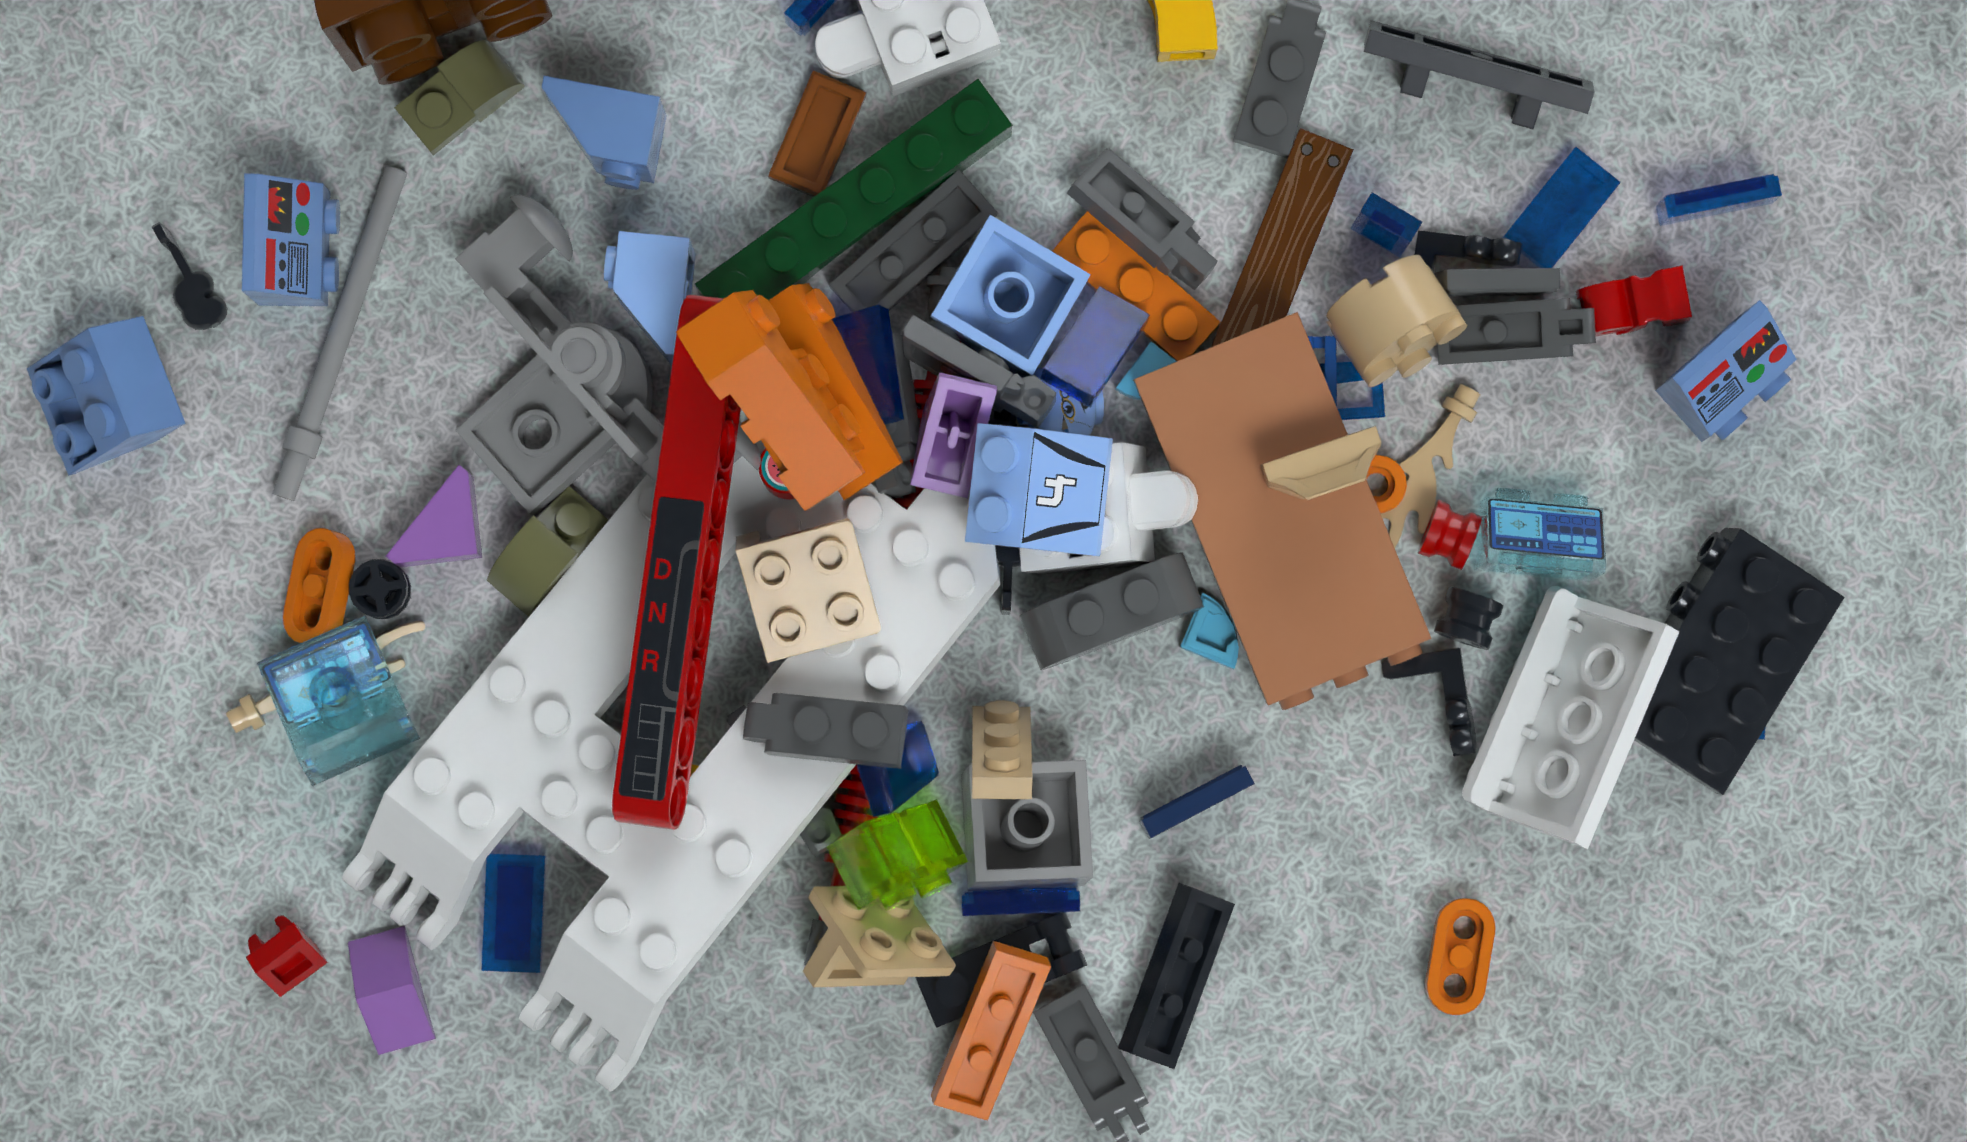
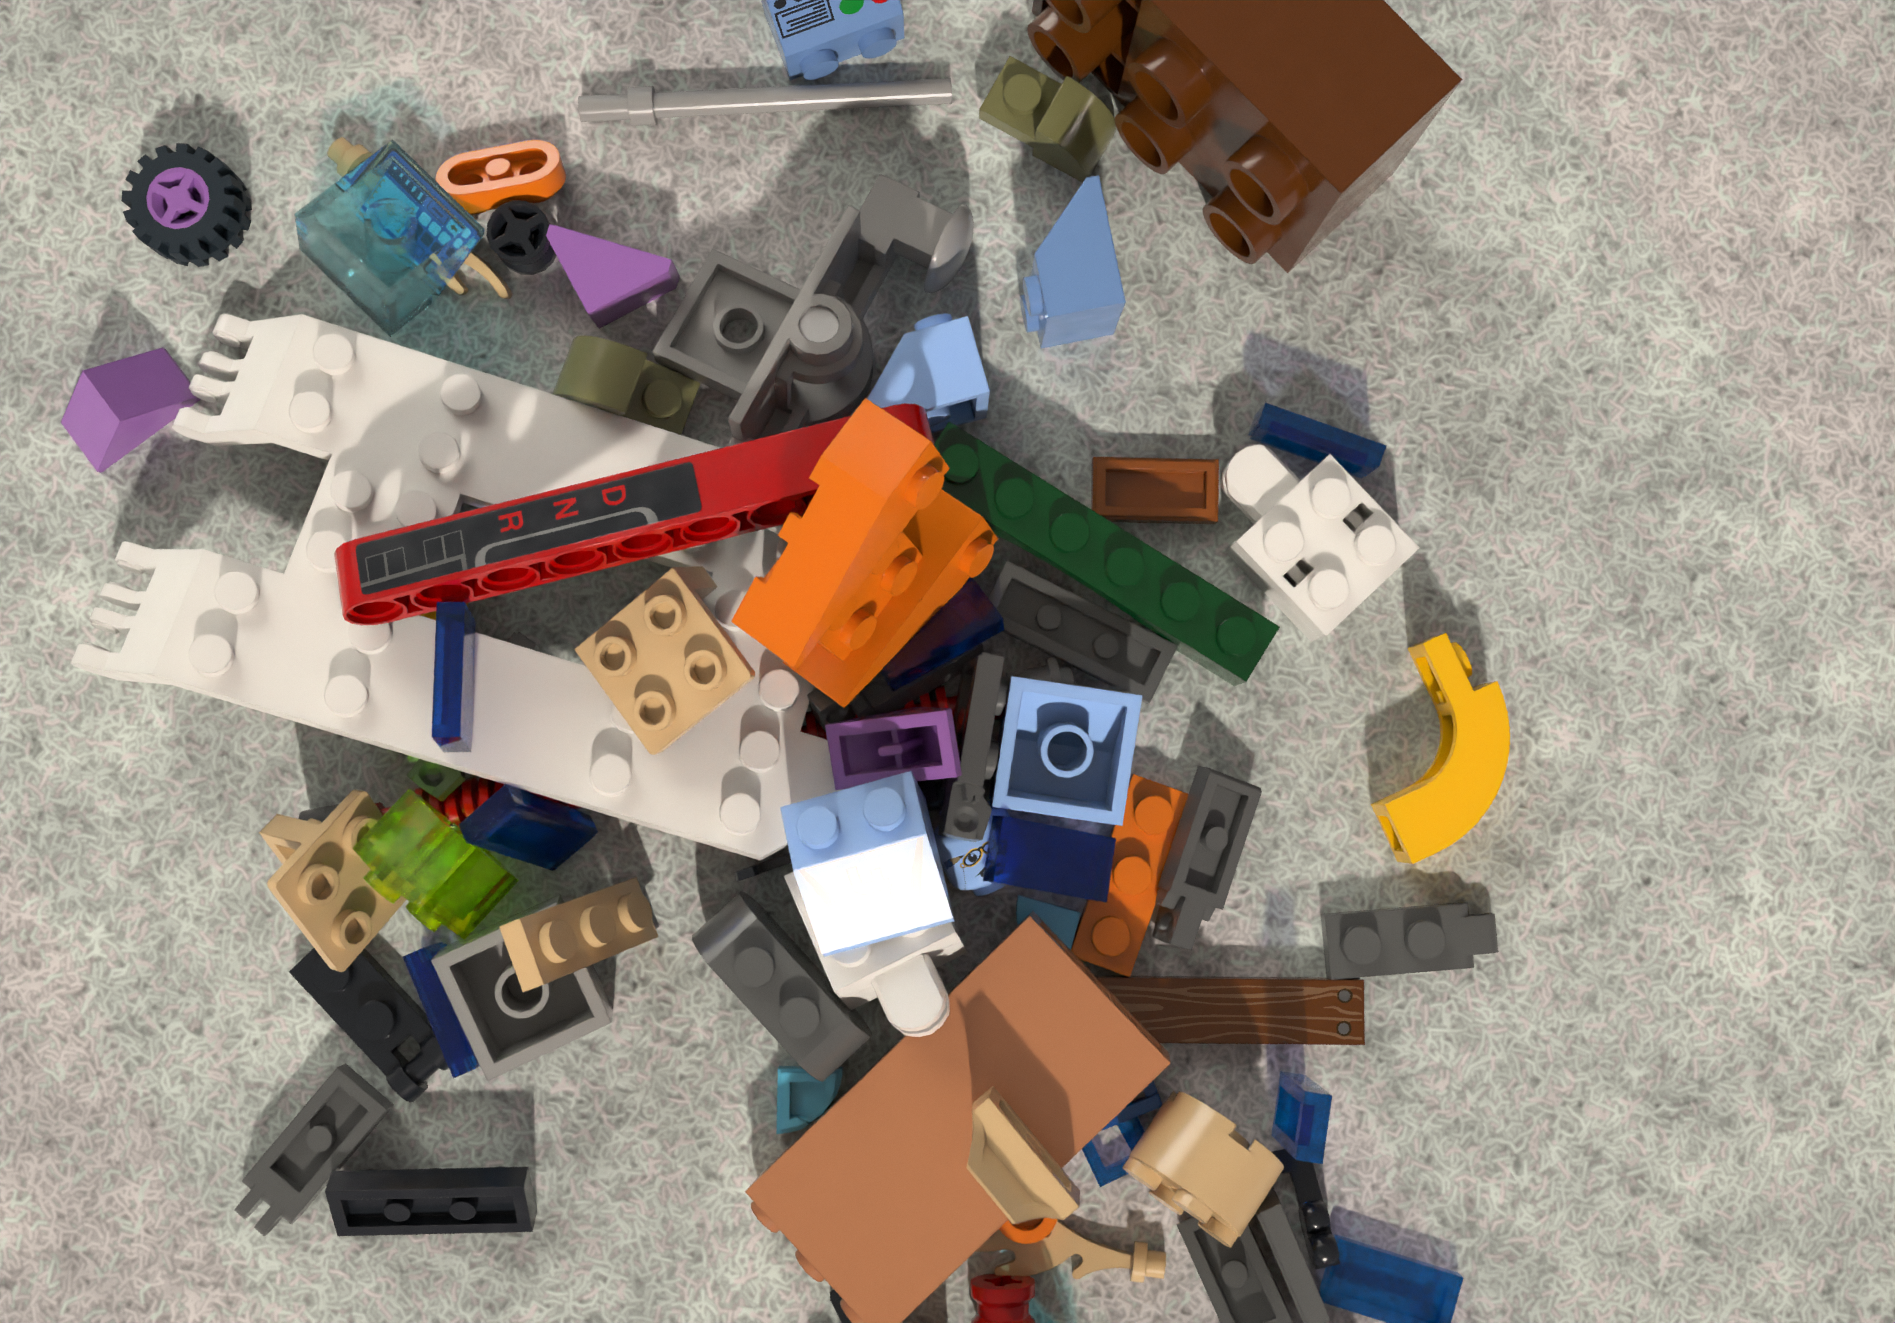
camera: 70 degrees right, 0 degrees up
(207, 868) = (172, 187): none -> black wheel
(285, 957) = (116, 291): red tile -> none
(514, 913) = (249, 499): clear blue tile -> none
(754, 762) = (453, 677): none -> clear blue tile
(828, 729) = (522, 743): dark grey hinge -> none
(990, 1030) = (299, 1032): orange plate -> none
(1196, 801) = (621, 1150): dark blue tile -> none
(1528, 81) = (1509, 1204): black hinge -> none

